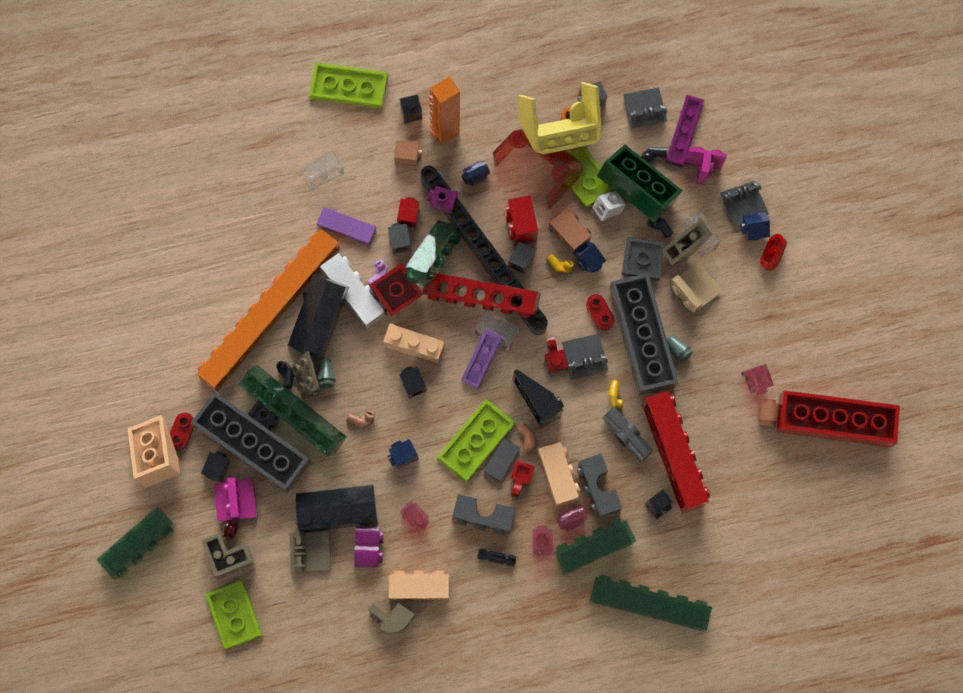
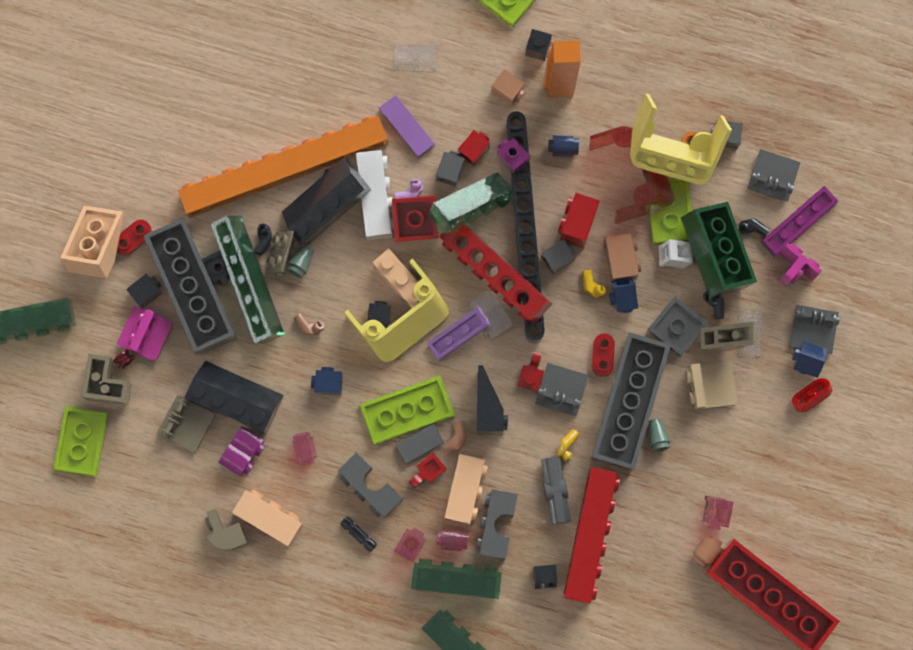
camera: 35 degrees right, 5 degrees up
(434, 394) = (411, 327): none -> light yellow windscreen

